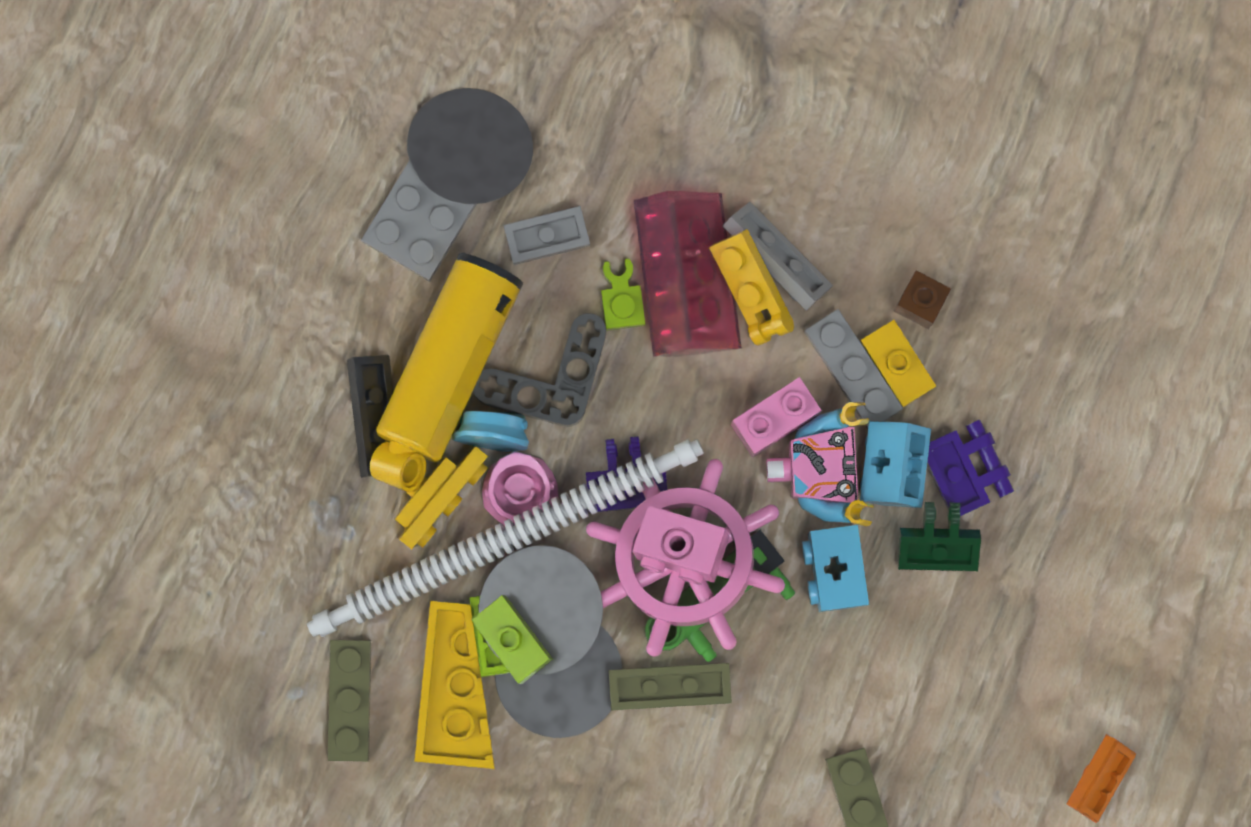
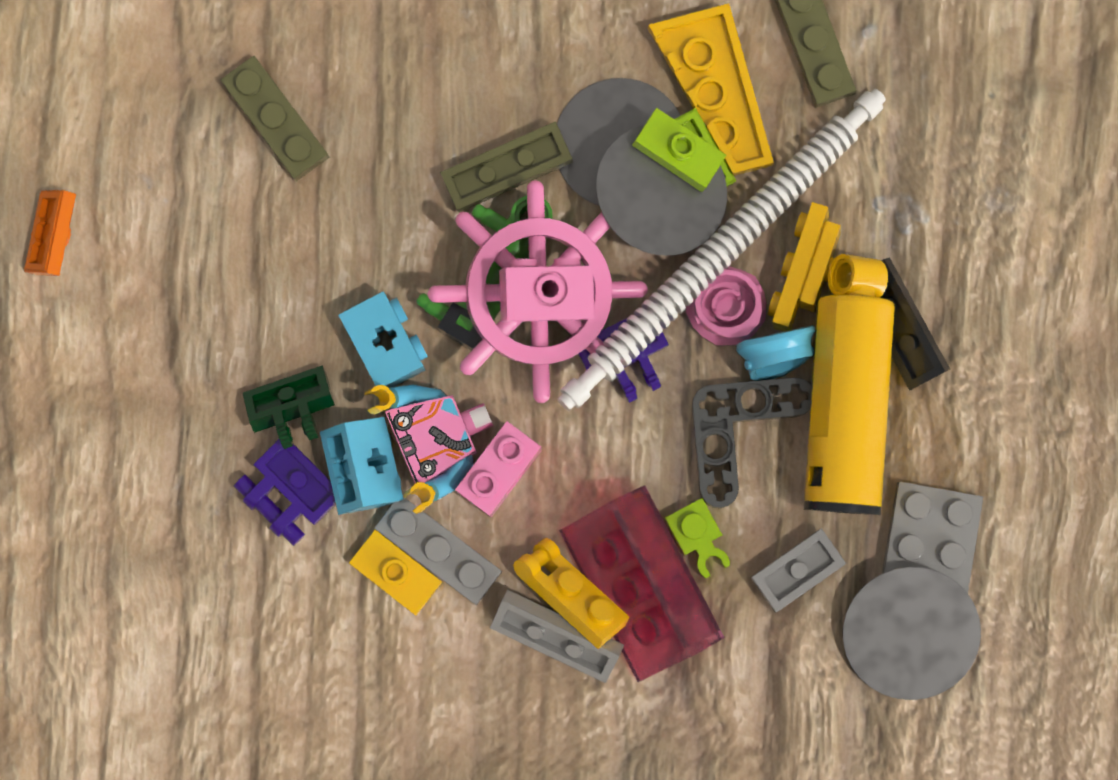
camera: 165 degrees right, 0 degrees up
(922, 299) = (393, 645): reddish brown brick -> none

